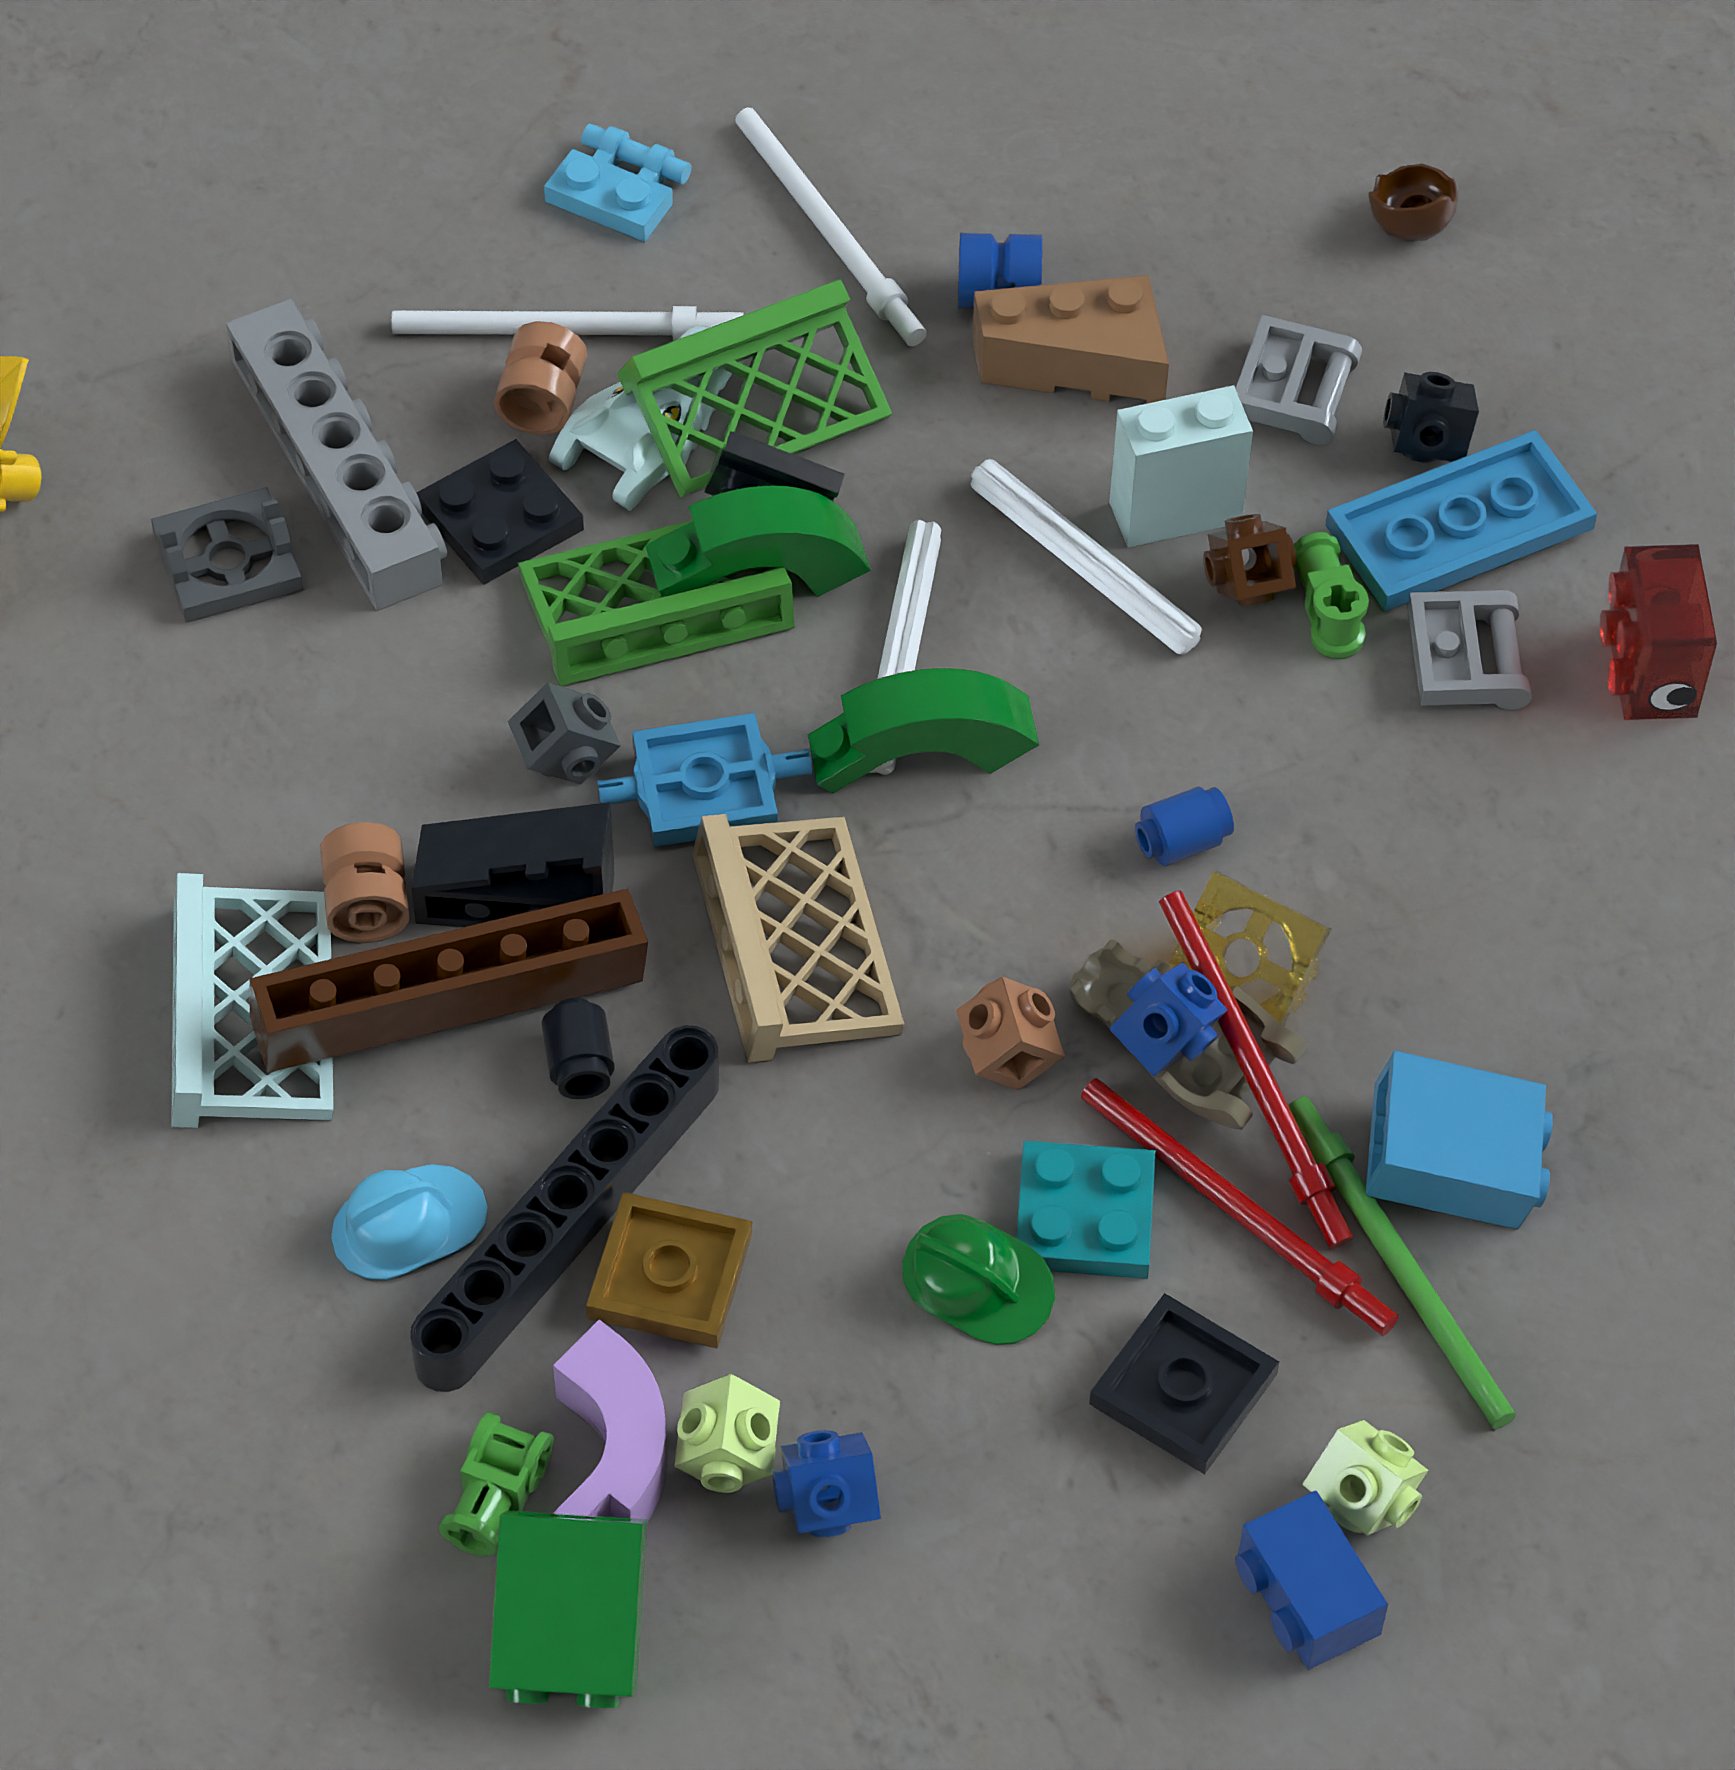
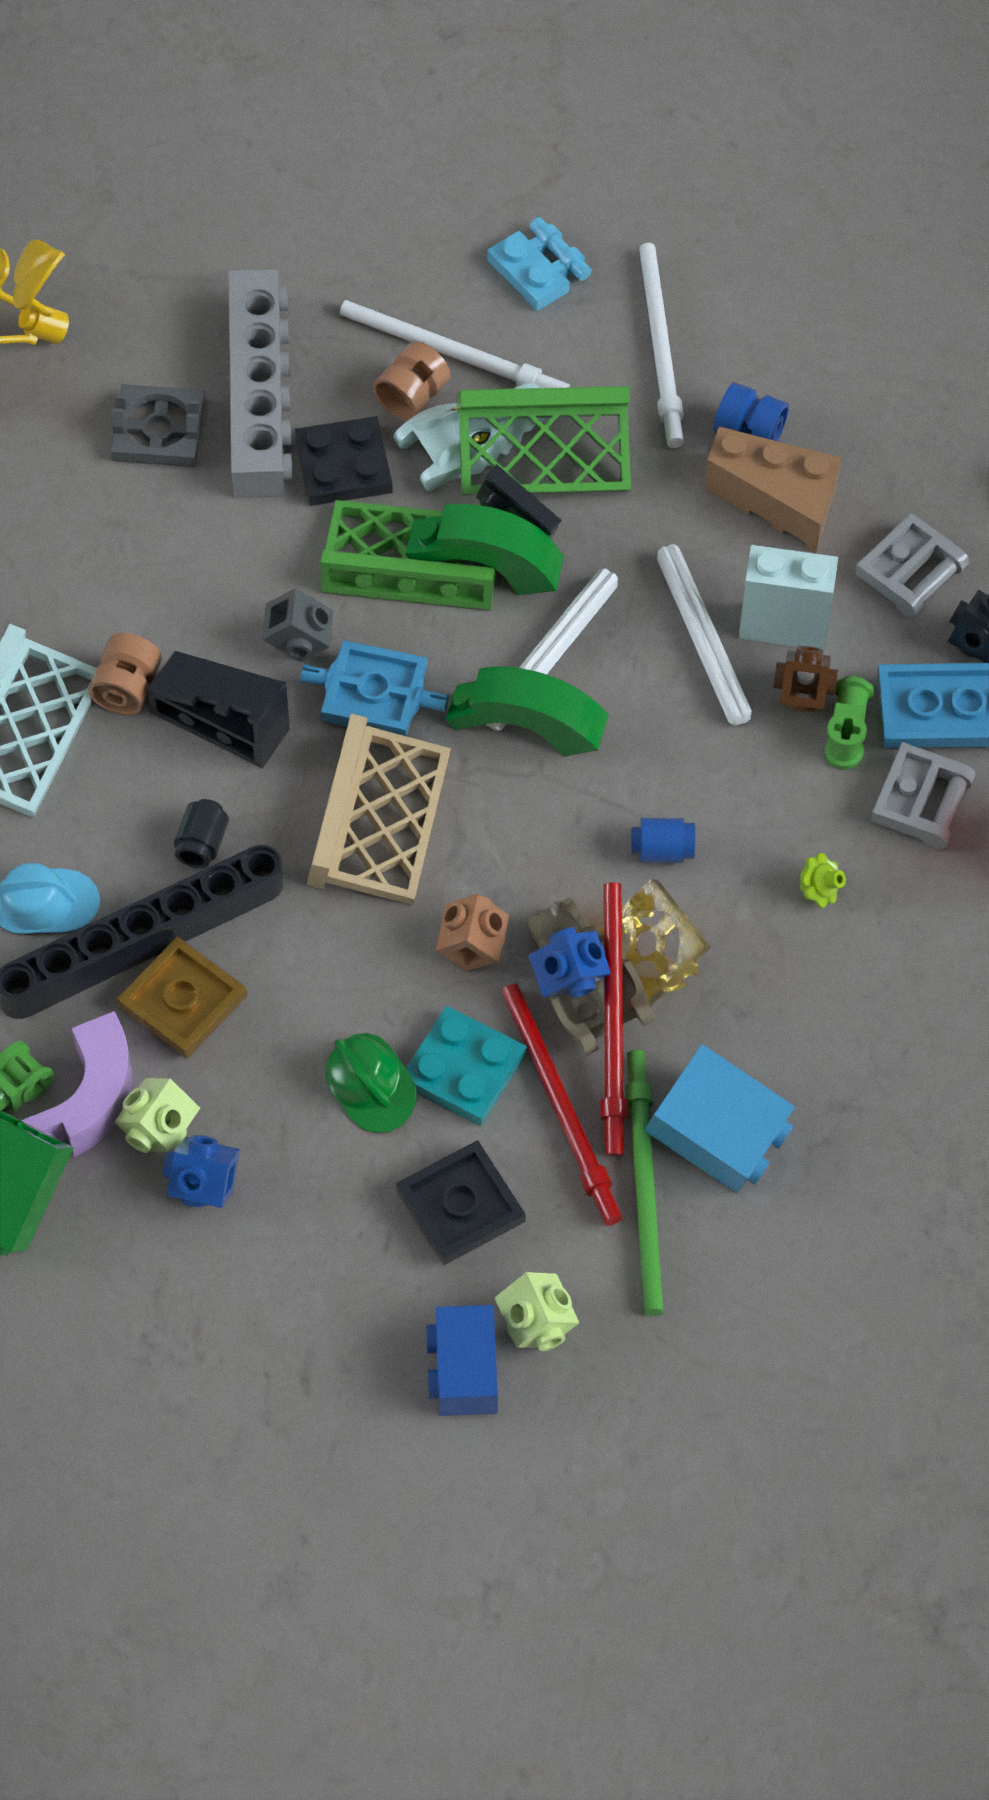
camera: 25 degrees right, 5 degrees up
(447, 980) = (137, 757): reddish brown brick -> none
(1407, 798) = (821, 880): none -> lime plant

